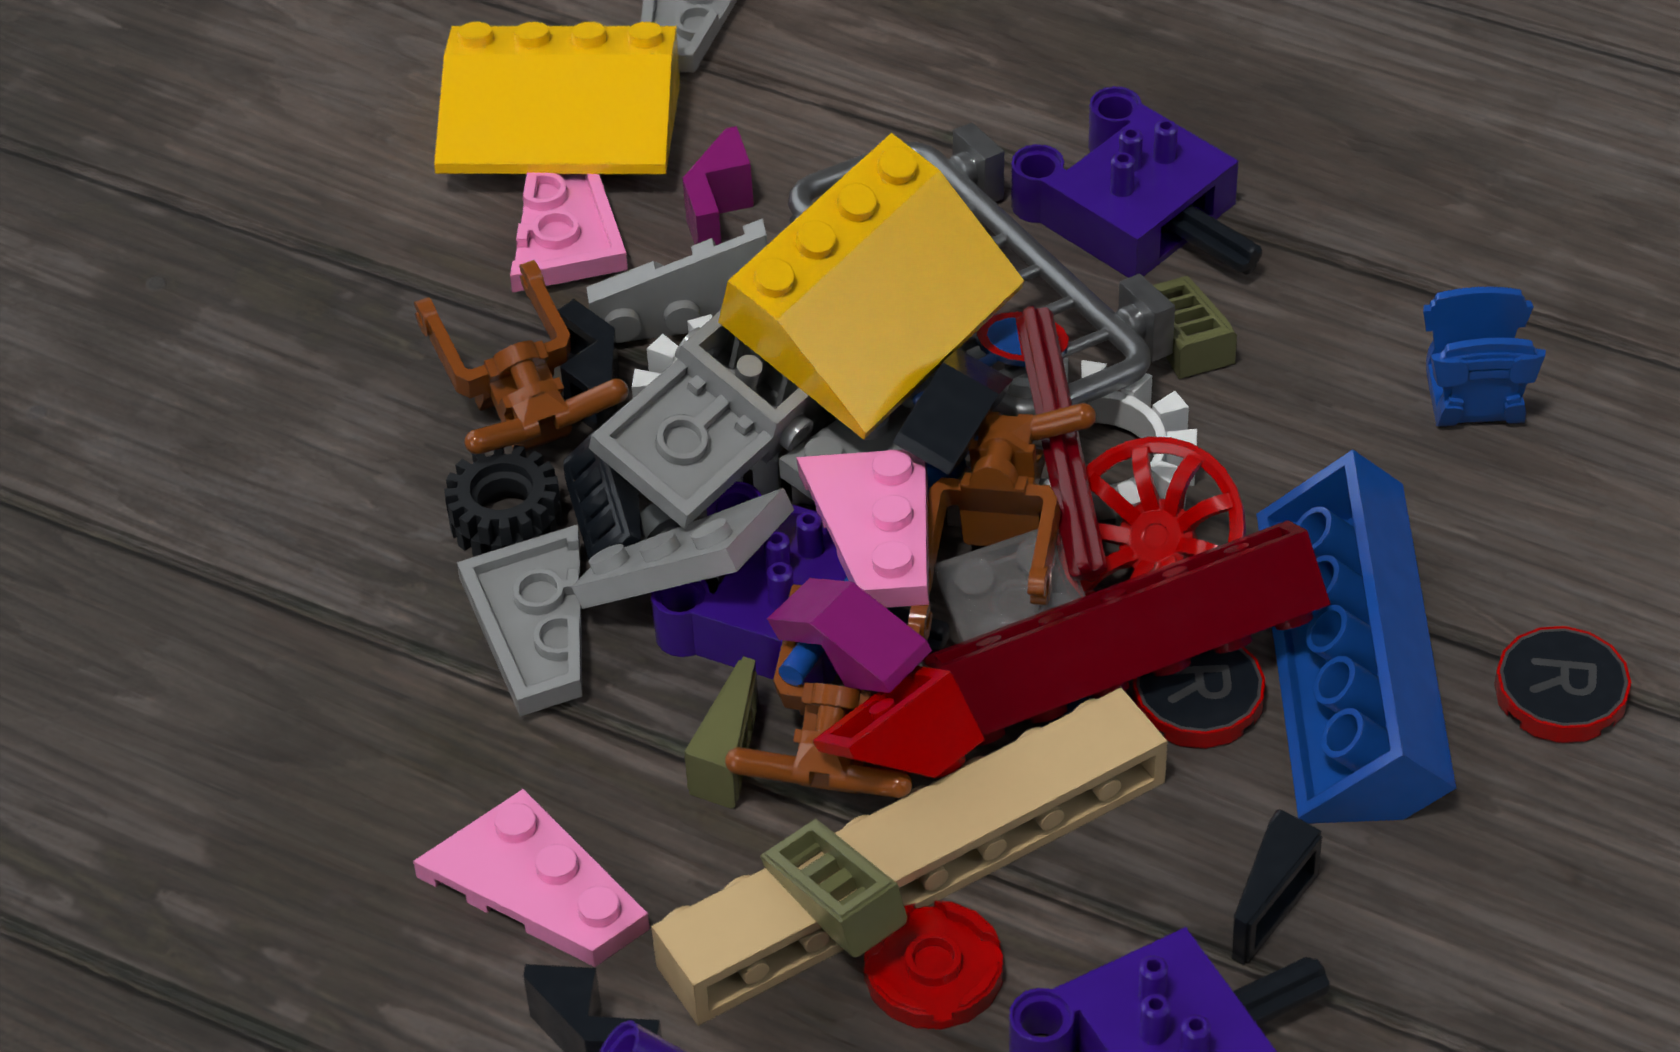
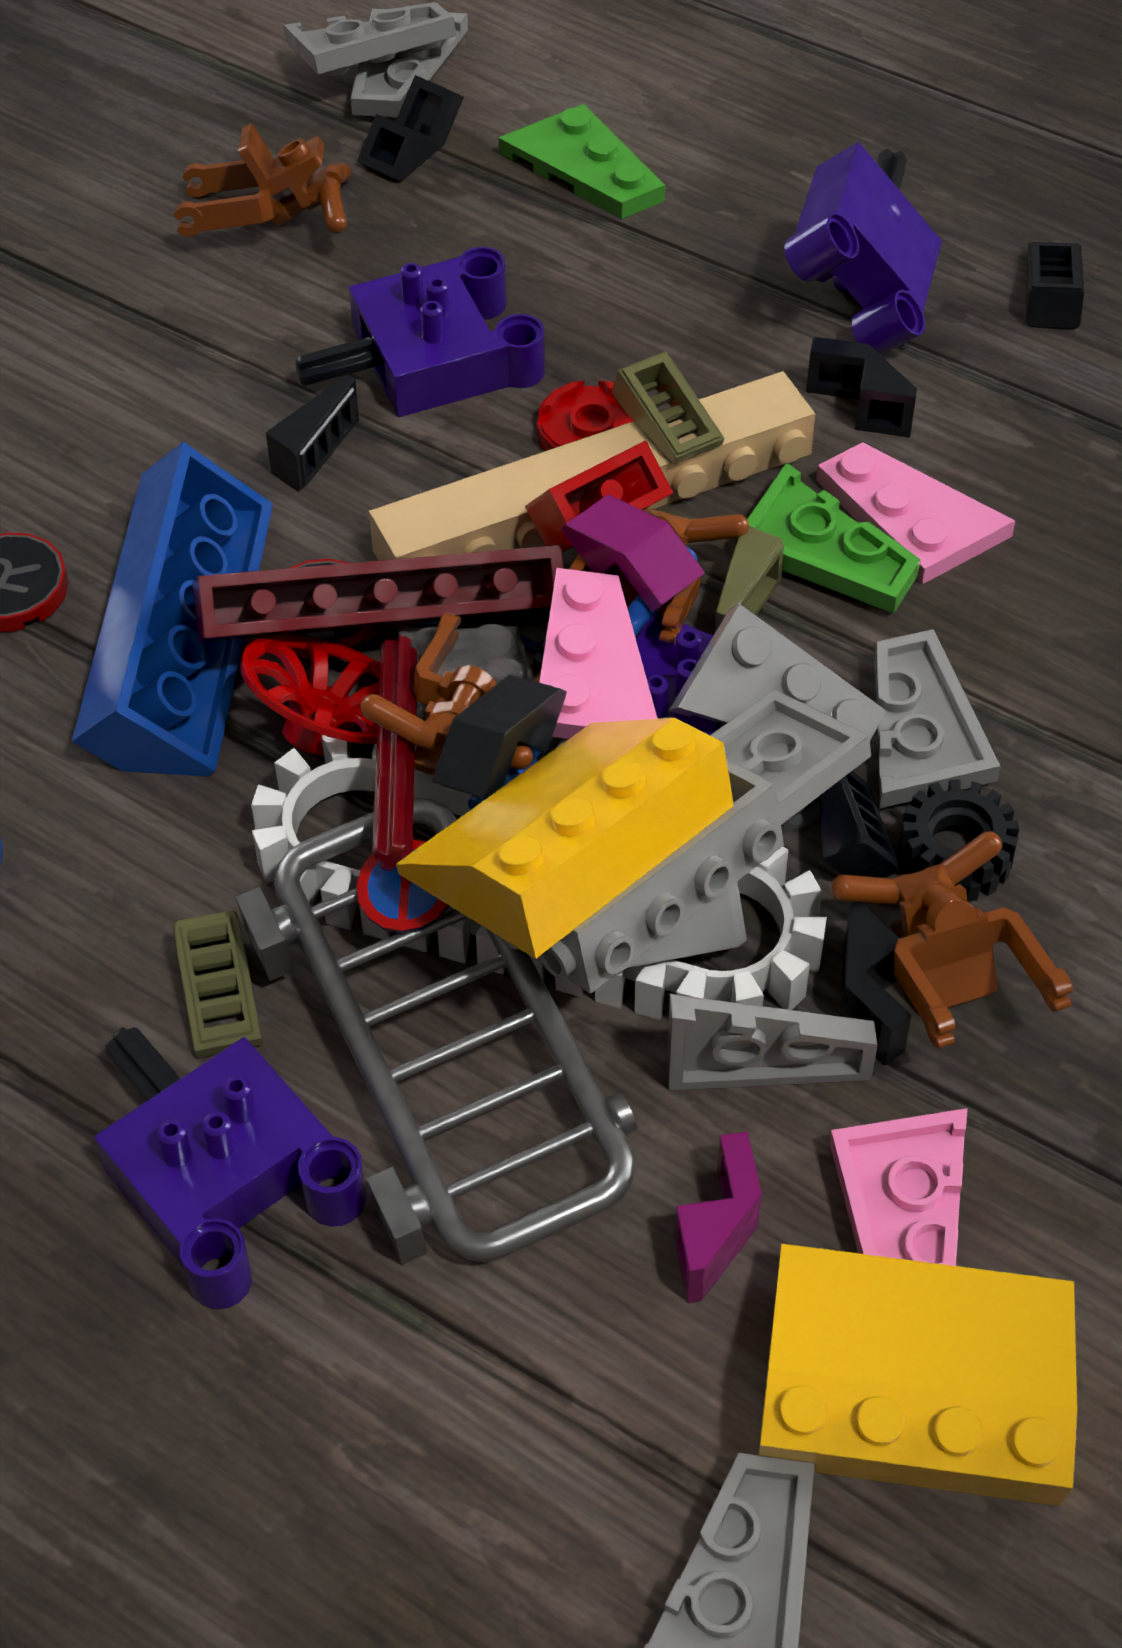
camera: 175 degrees left, 5 degrees up
(638, 811) = (831, 546): none -> bright green wing

